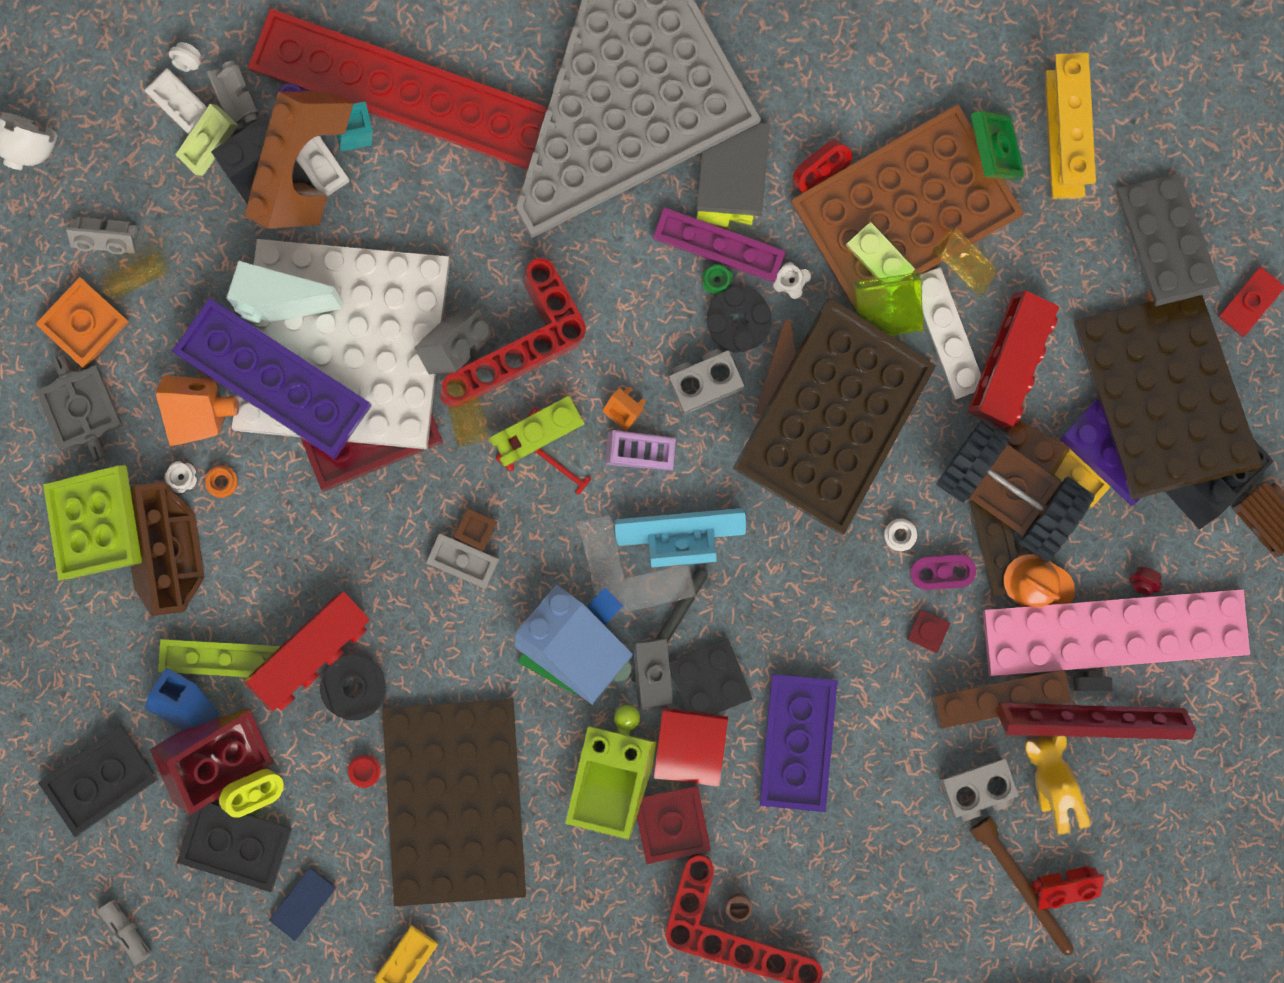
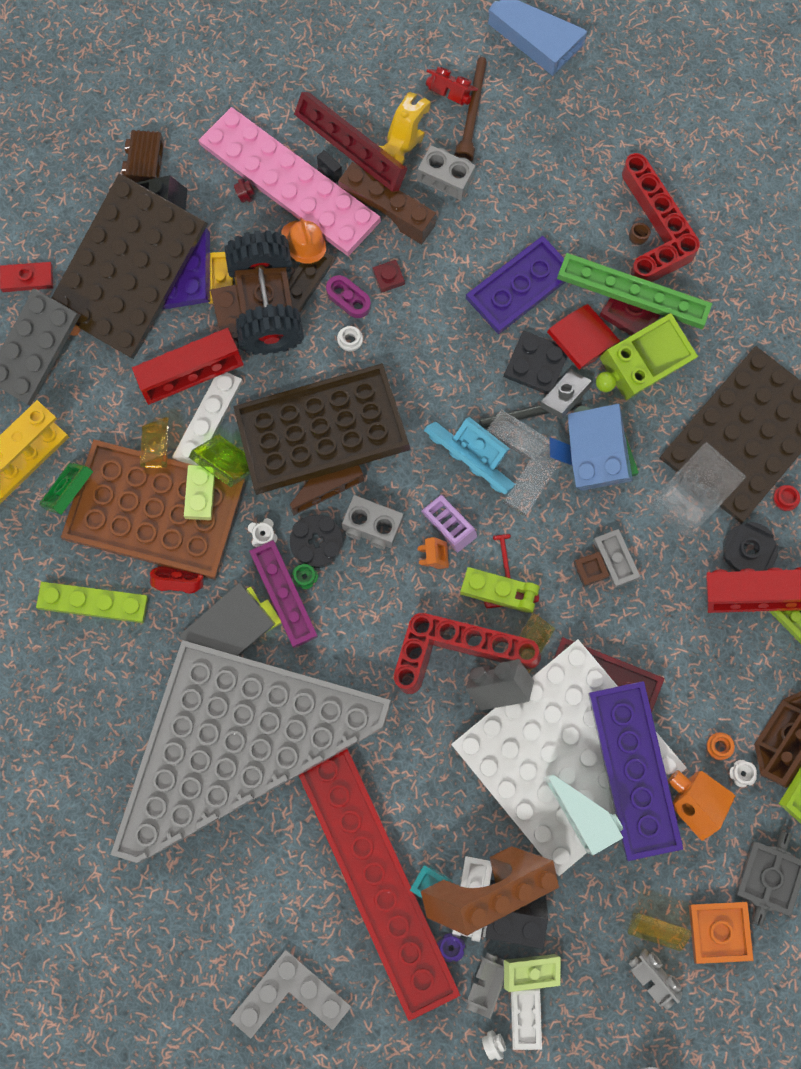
camera: 140 degrees left, 10 degrees down
(447, 692) = (697, 490): none -> clear slope
(684, 833) = (634, 290): none -> bright green plate
(873, 80) = (92, 602): none -> lime plate

